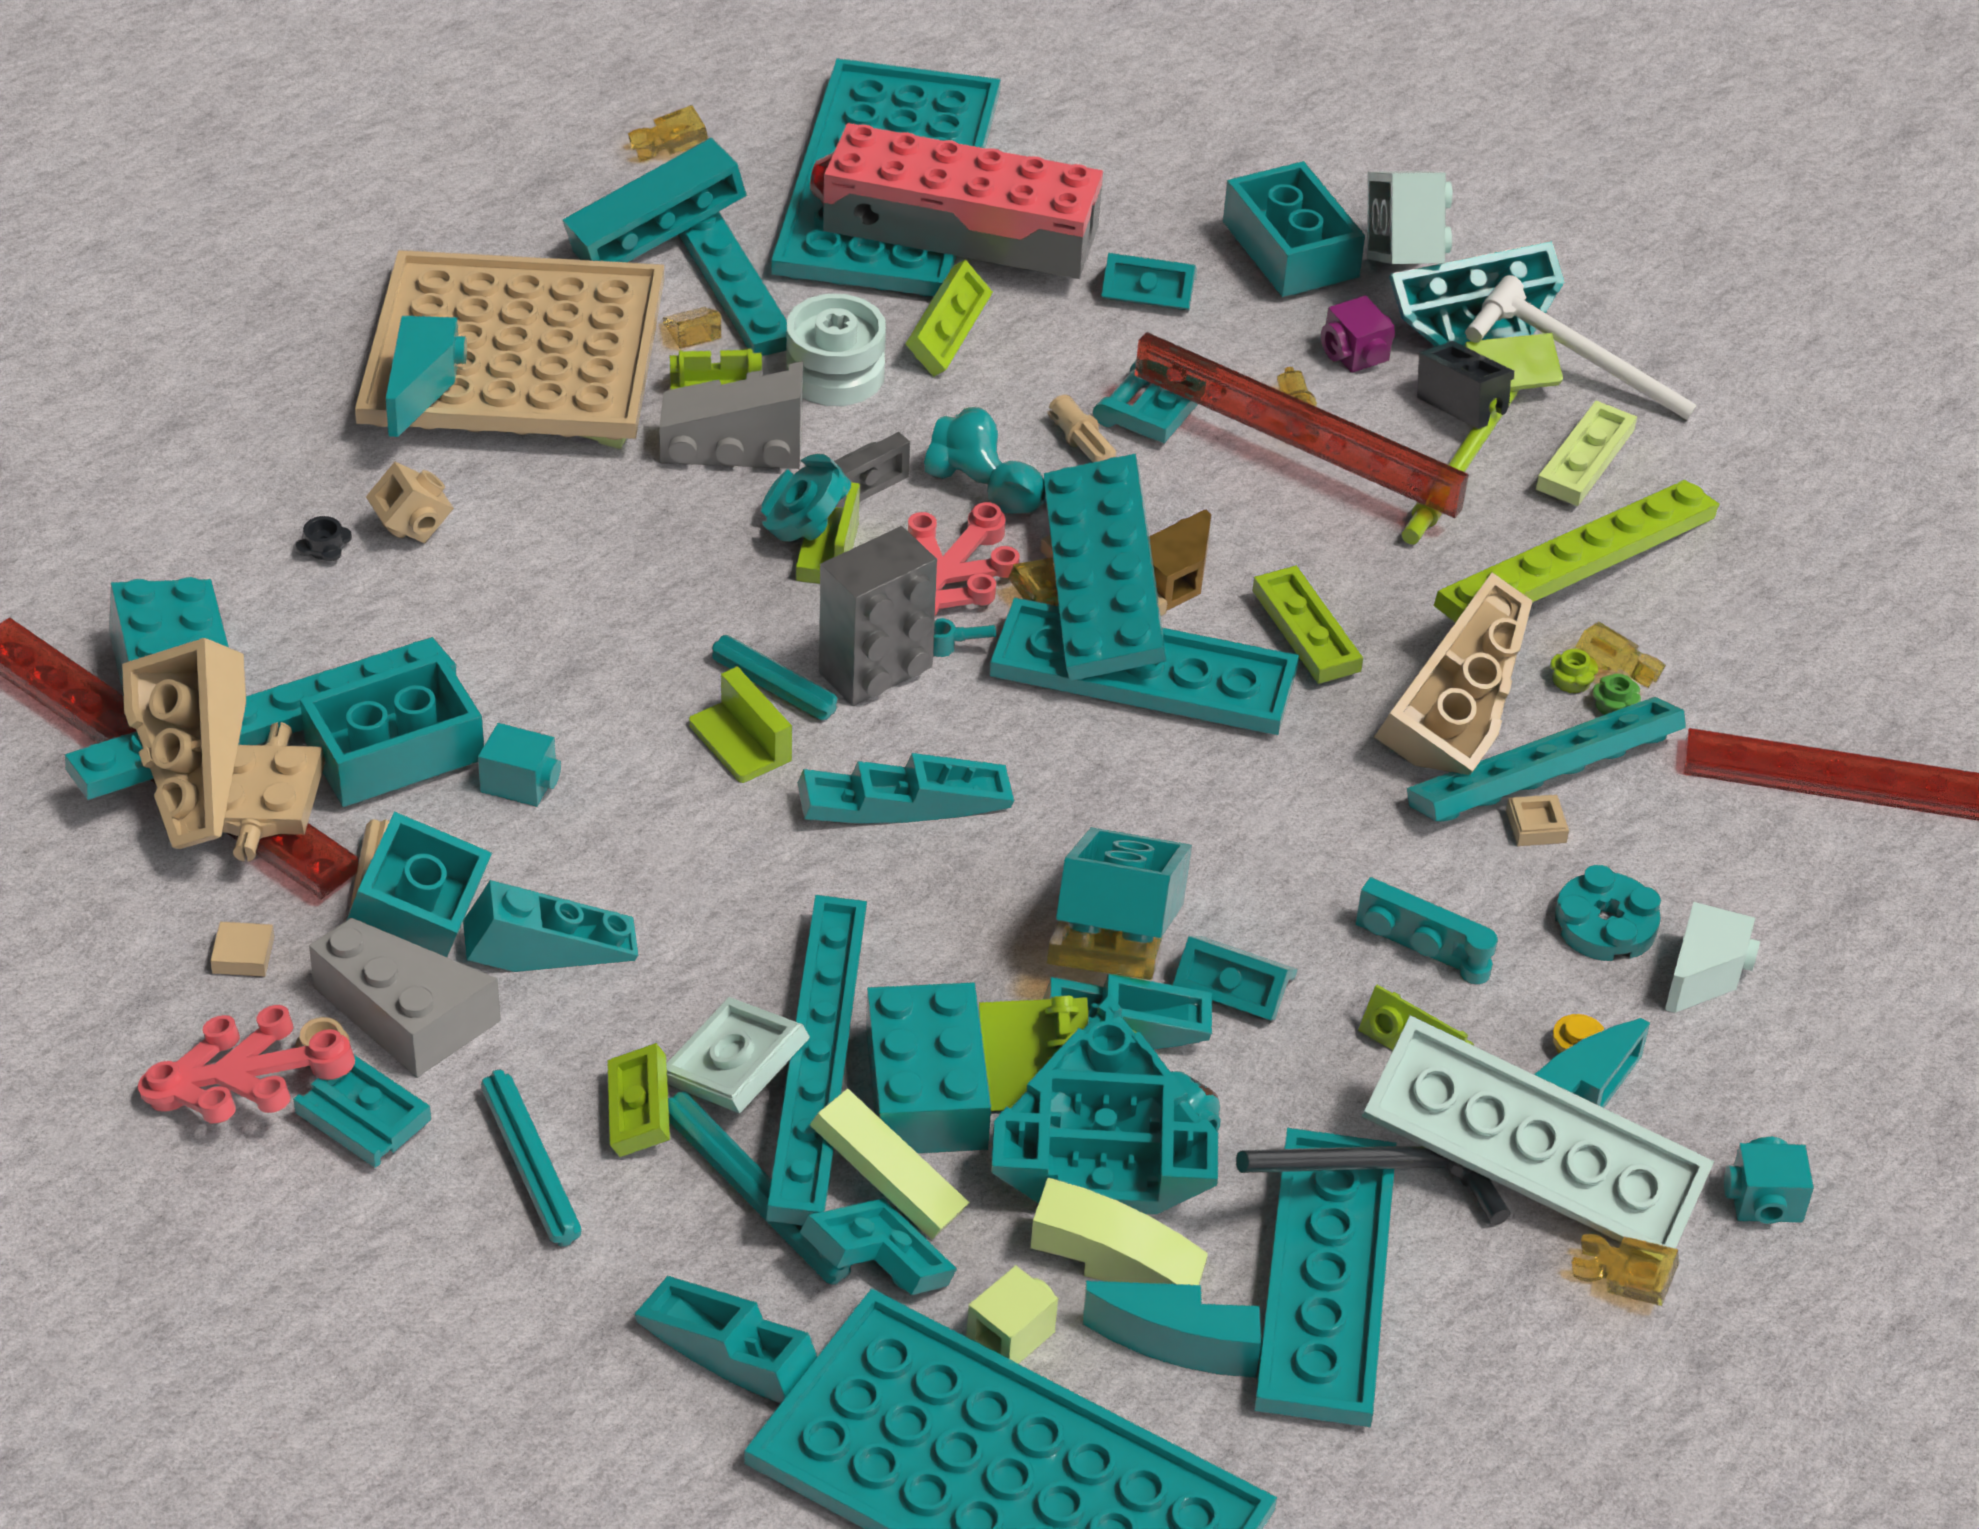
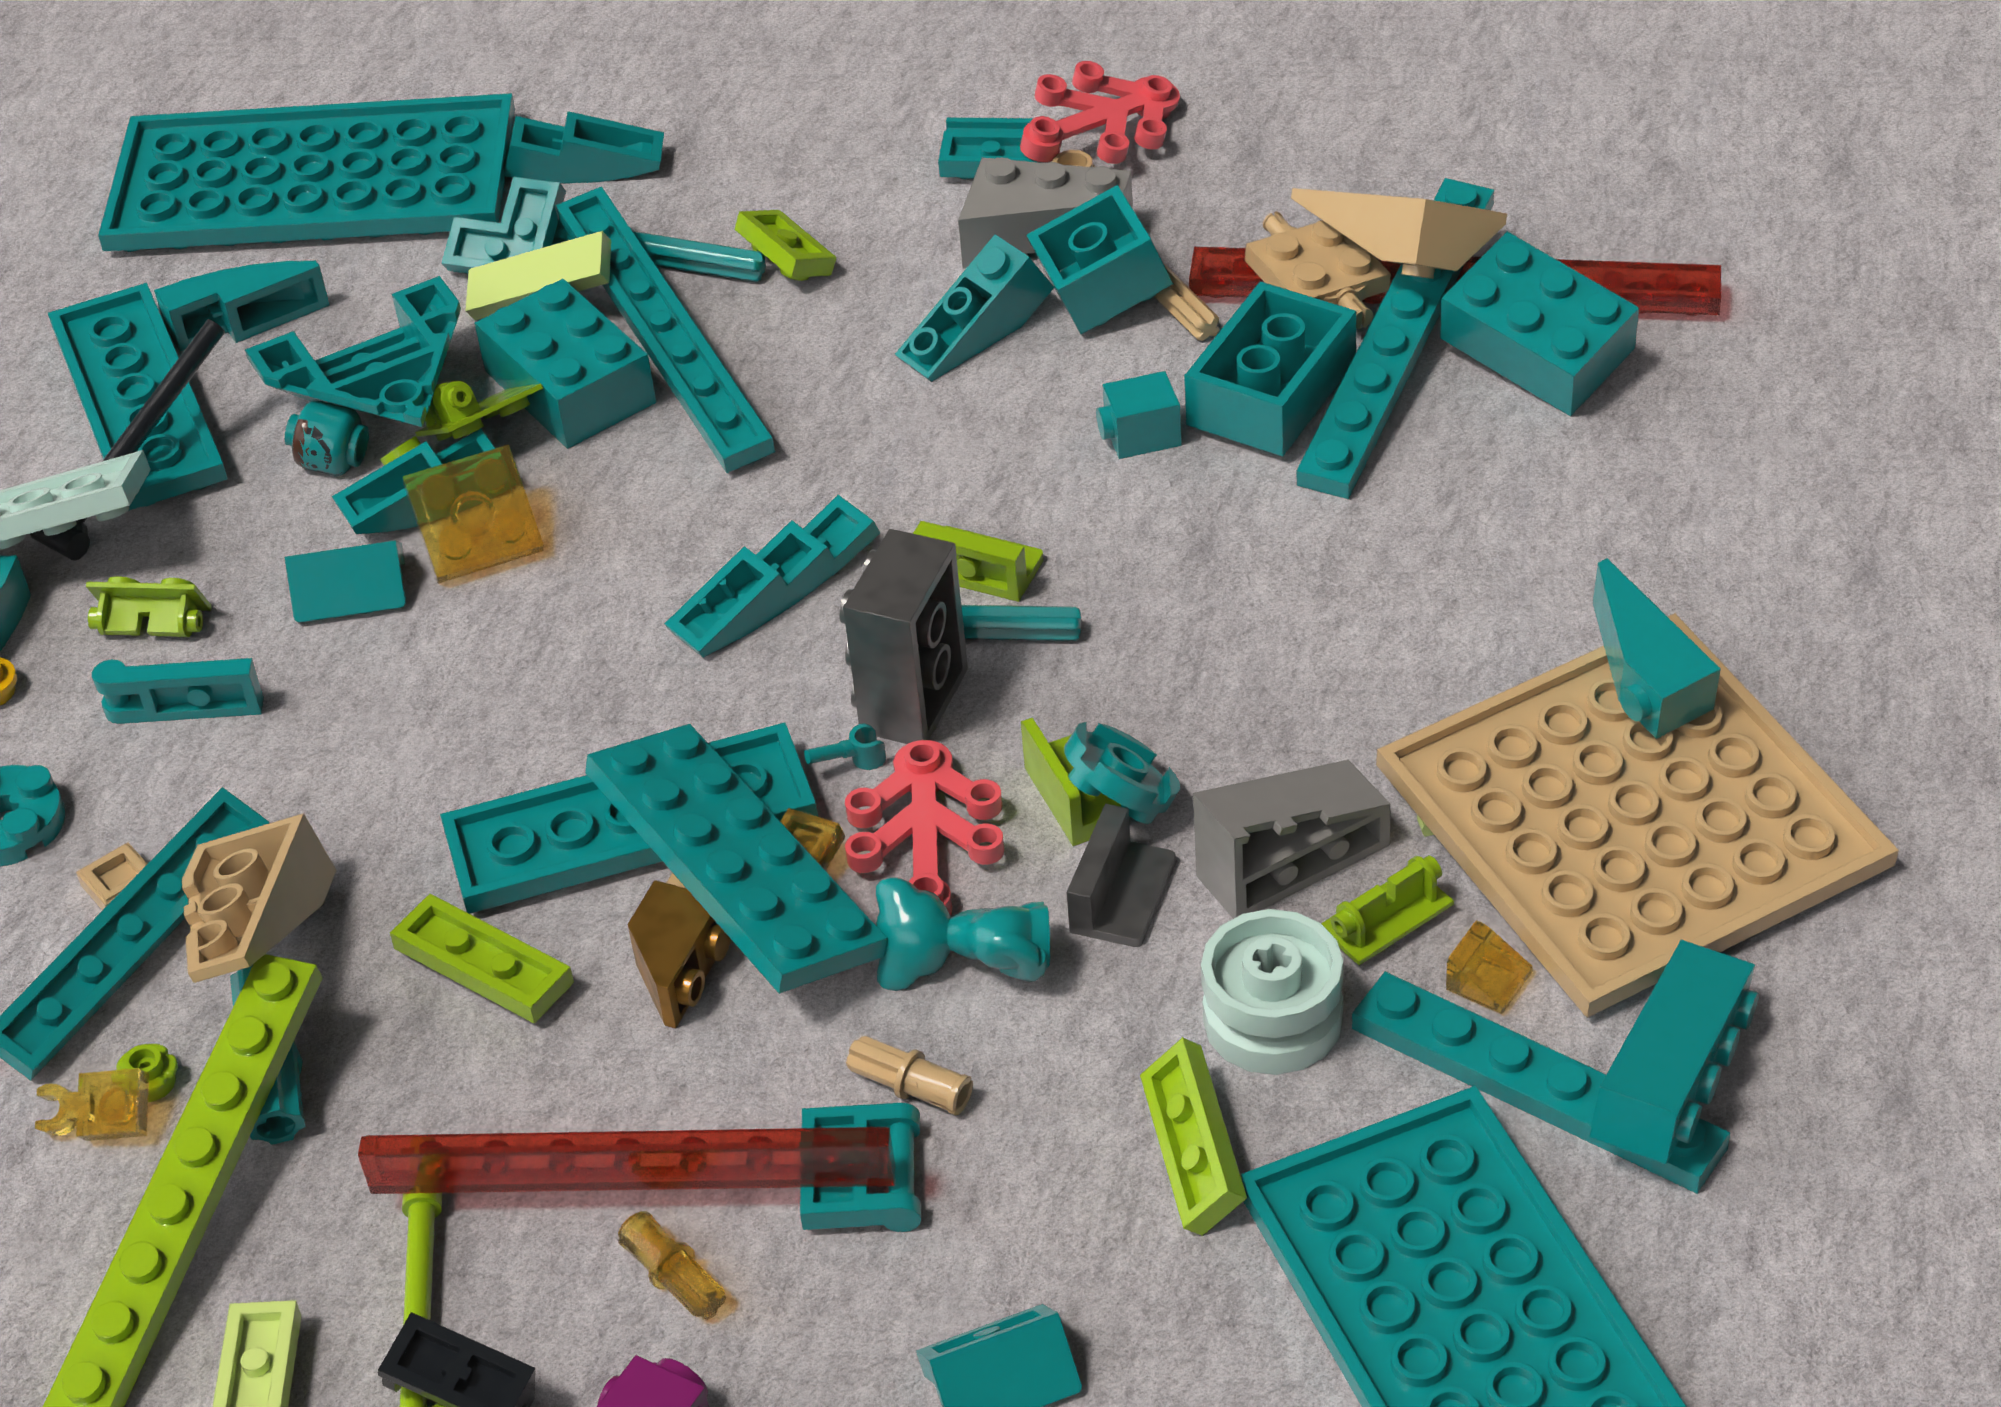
camera: 155 degrees right, 0 degrees up
(242, 949) = (1213, 203): tan tile -> none
(323, 538) = (1562, 522): black plate -> none
(410, 502) = (1507, 568): tan brick -> none
(531, 1158) = (838, 186): teal axle -> none
(672, 132) = (1817, 1238): clear yellow plate -> none
(735, 1054) = (730, 293): light aqua tile -> none
(959, 200) = (1297, 1244): coral piece -> none
(1013, 1315) = (373, 249): yellowish green brick -> none
(1112, 1238) = (333, 318): yellowish green slope -> none
(1123, 884) = (476, 528): teal brick -> none
(1615, 693) = (80, 1056): bright green plate -> none

